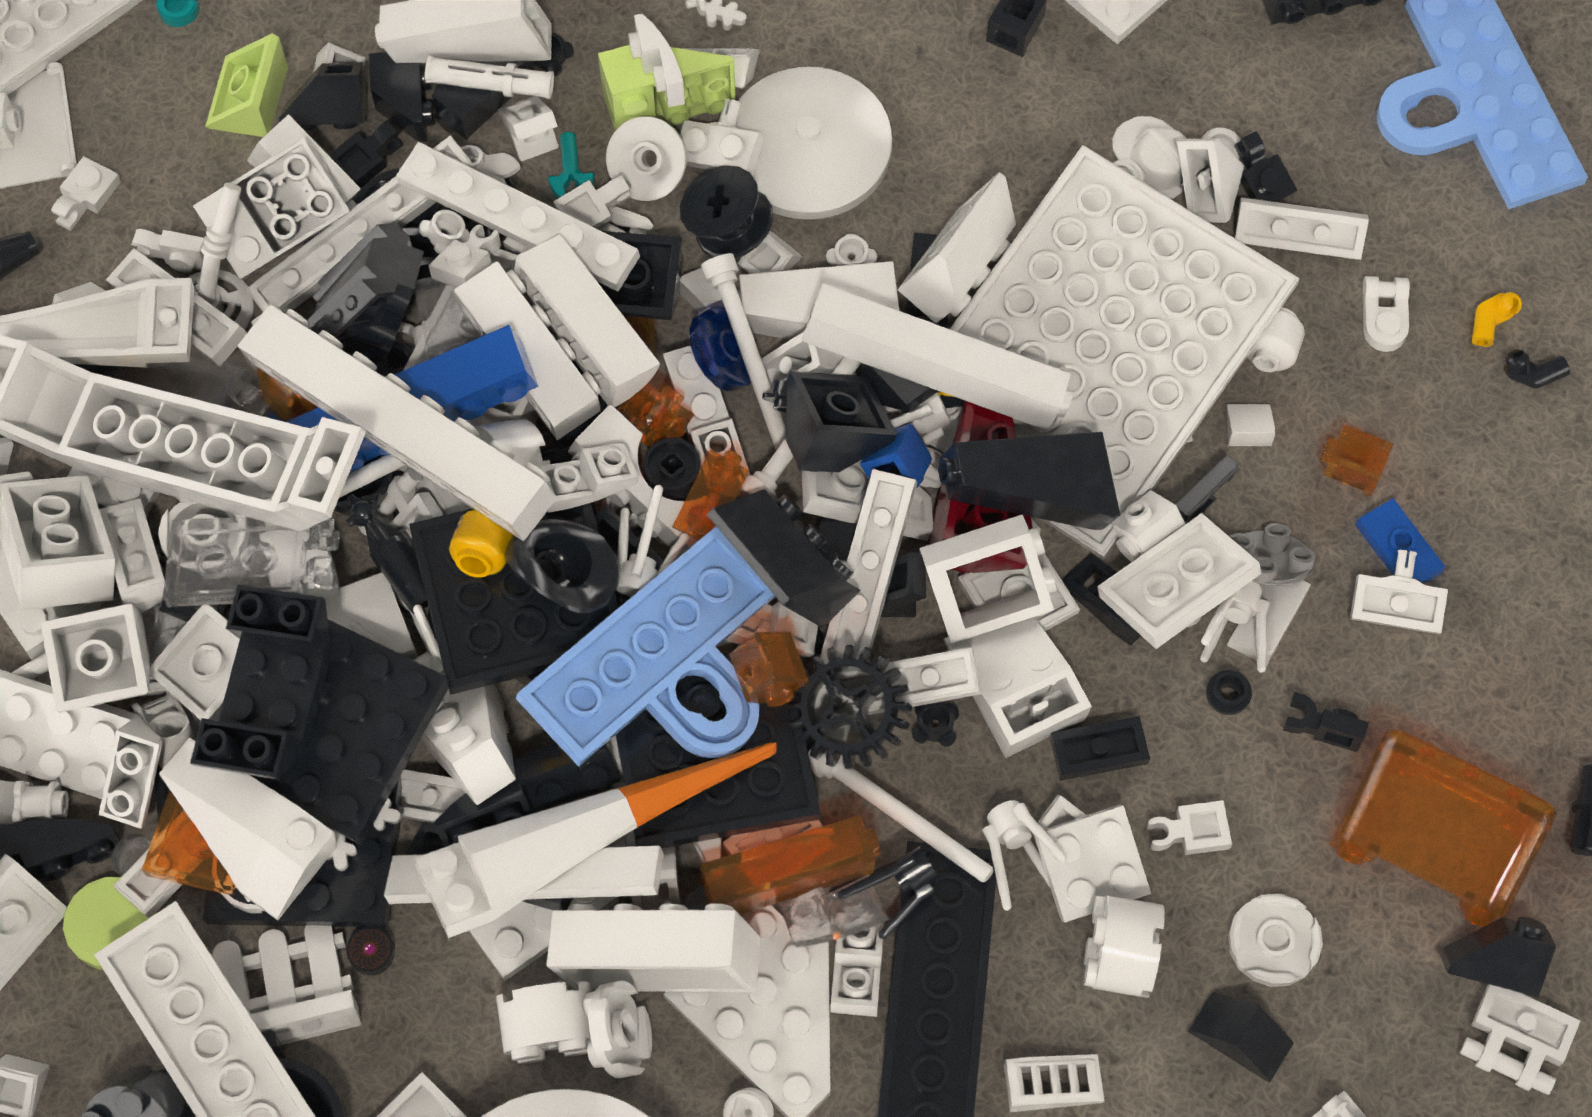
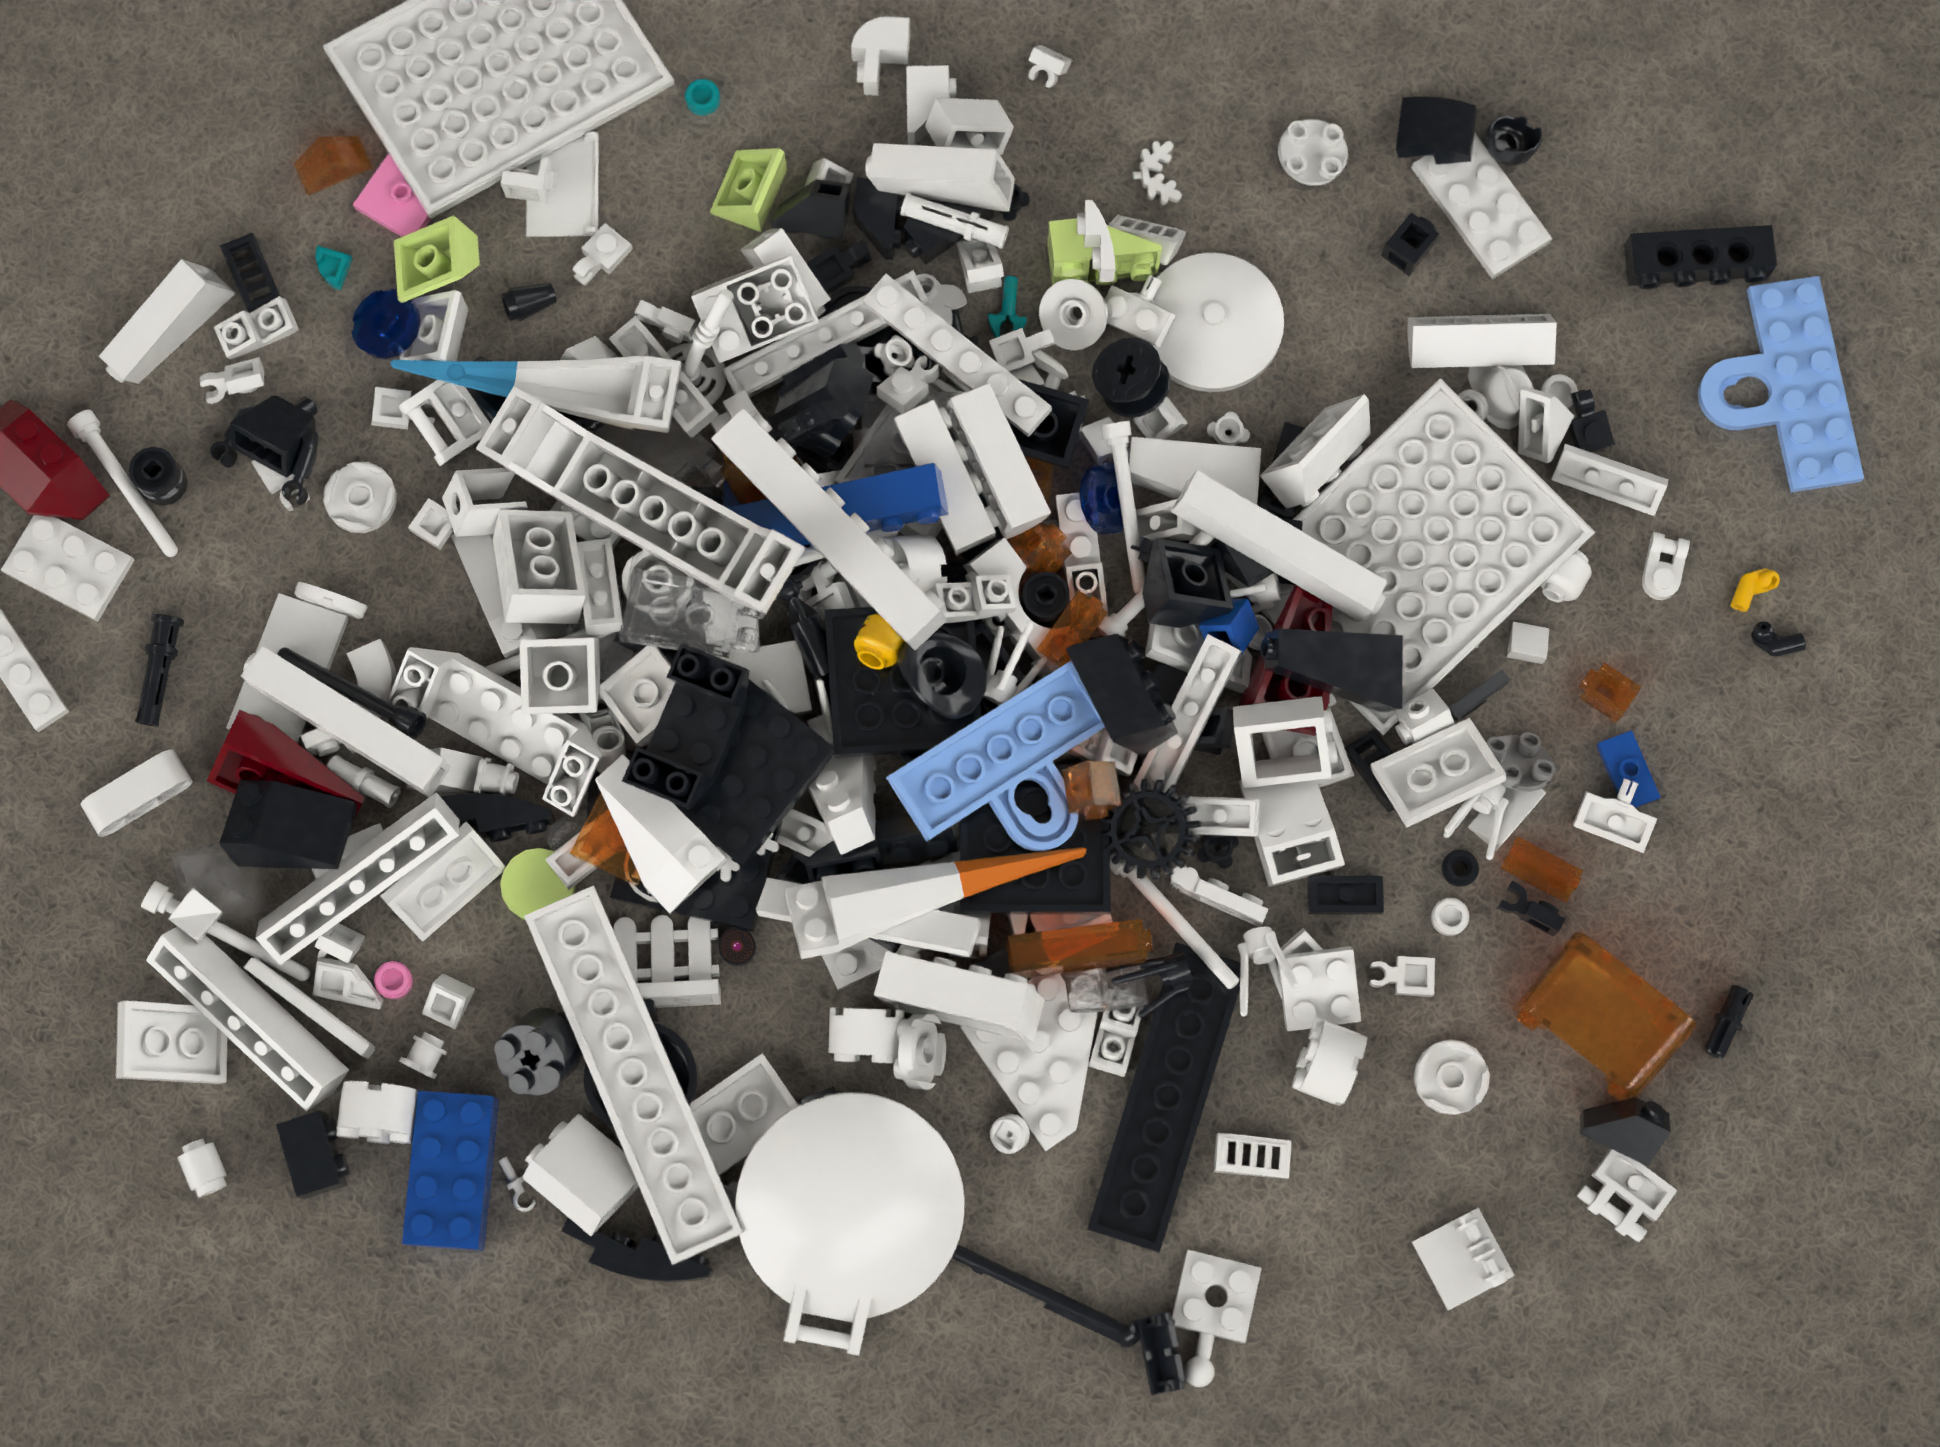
camera: 10 degrees right, 10 degrees up
(946, 777) = (1217, 895): none -> white hinge
(1120, 107) = (1481, 340): none -> white brick
(1229, 751) = (1450, 916): none -> white tile
(1242, 1034) = (1408, 1147): black slope -> none
(1326, 676) = (1541, 869): none -> clear orange hinge

